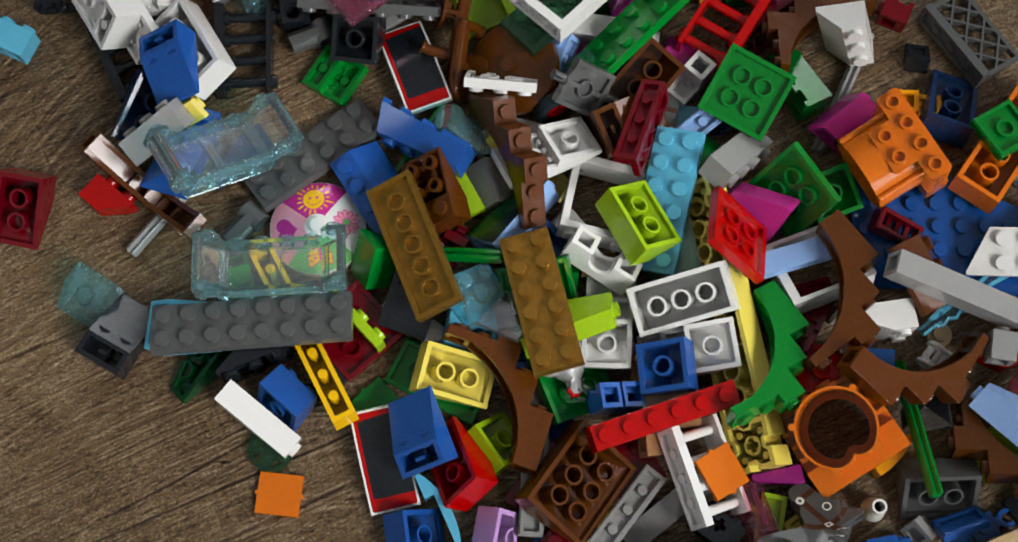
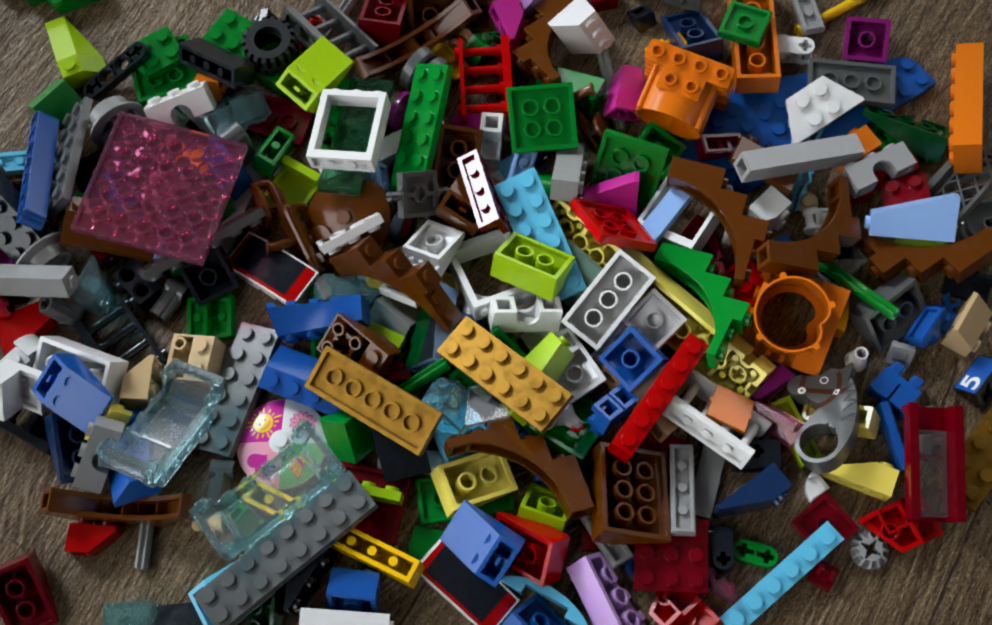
camera: 30 degrees left, 5 degrees down
(235, 93) = (142, 383): none -> tan slope
(301, 100) = (198, 350): none -> tan slope
(799, 132) = (583, 126): none -> reddish brown piece

